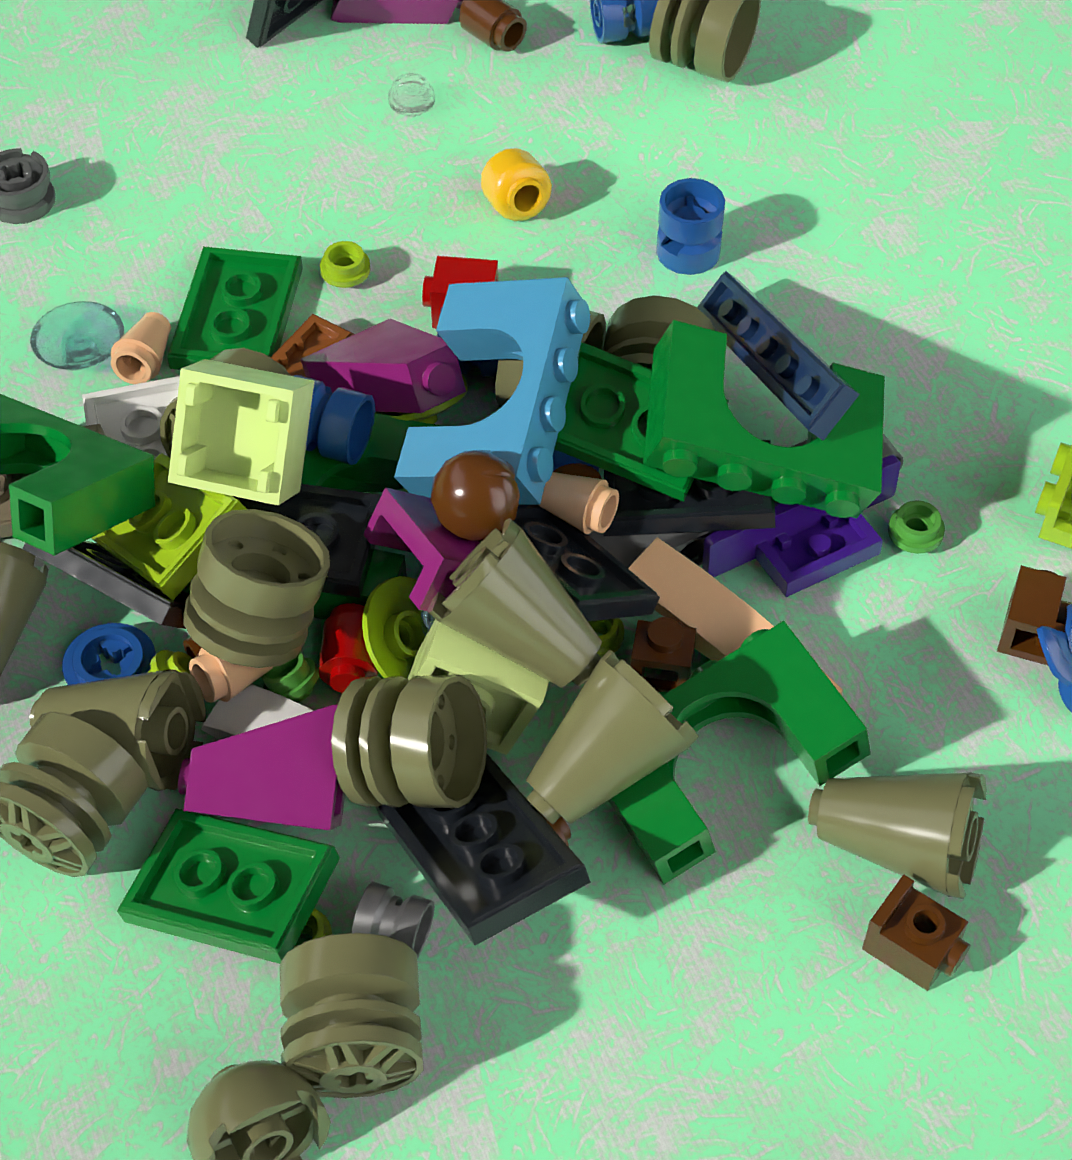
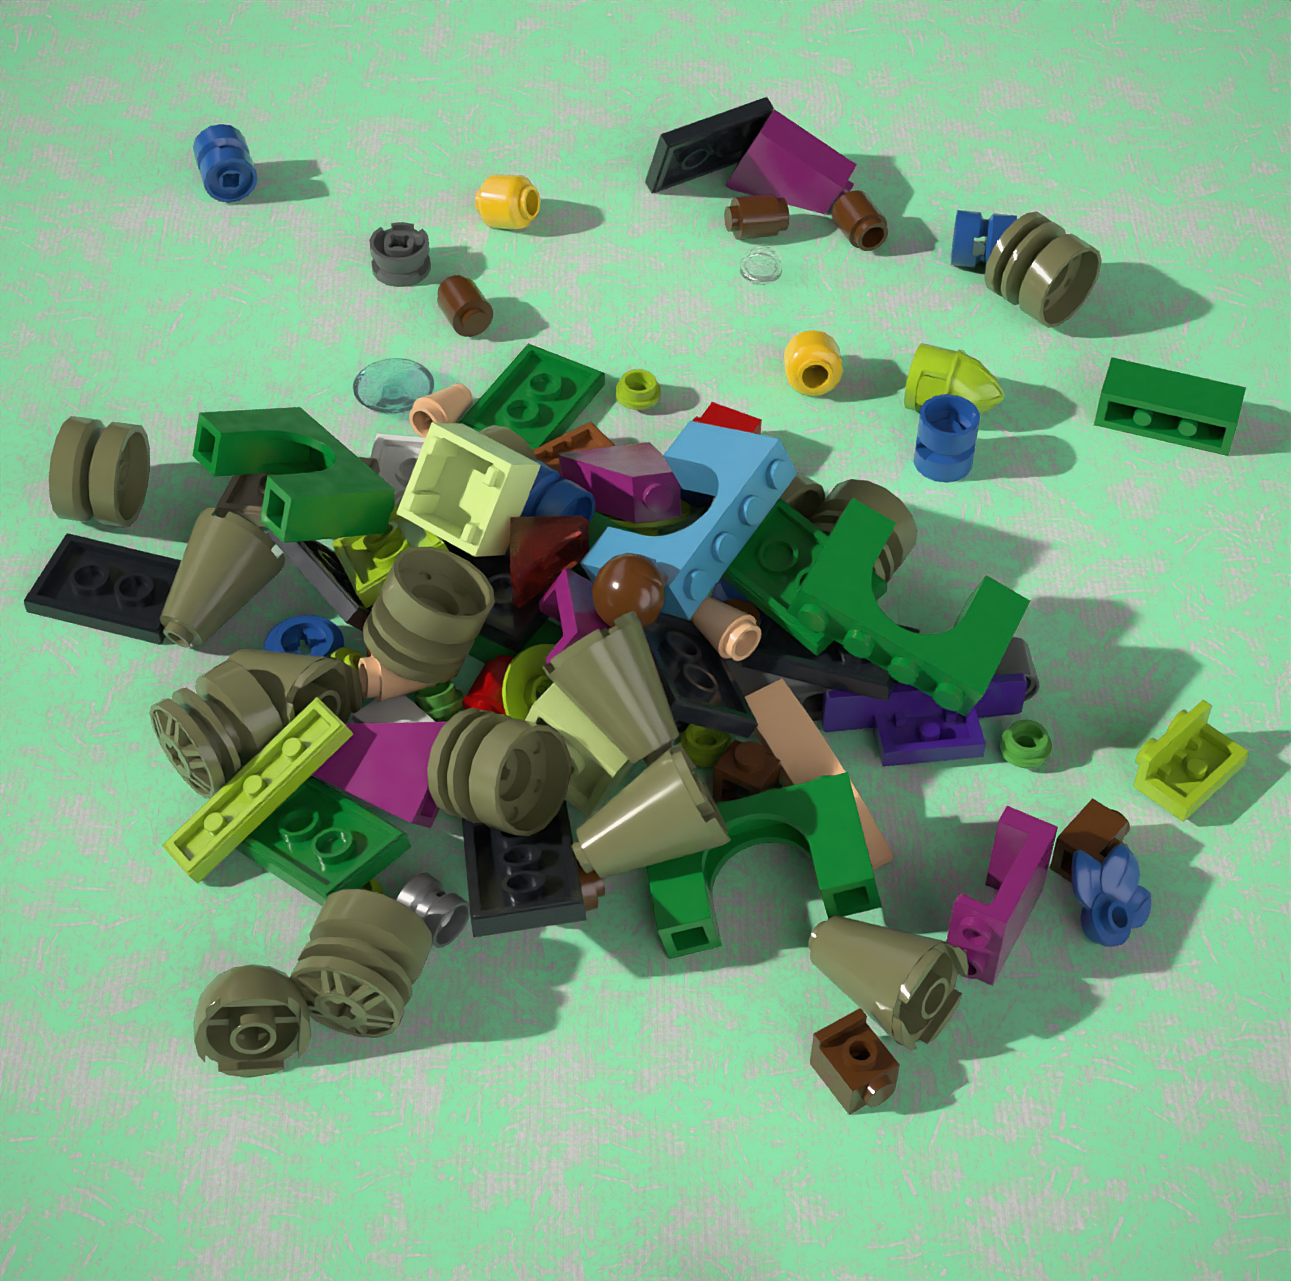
camera: 20 degrees right, 5 degrees down
(111, 96) = (507, 202): none -> yellow head
(115, 224) = (464, 306): none -> reddish brown brick
(138, 852) = (257, 790): none -> lime tile
(345, 476) = (542, 550): none -> clear red slope
(383, 43) = (757, 216): none -> reddish brown brick
(665, 157) = (950, 372): none -> lime helmet
(778, 356) = (952, 559): dark blue tile -> none
(888, 131) = (1169, 406): none -> green brick
(989, 662) = (1018, 873): none -> magenta panel

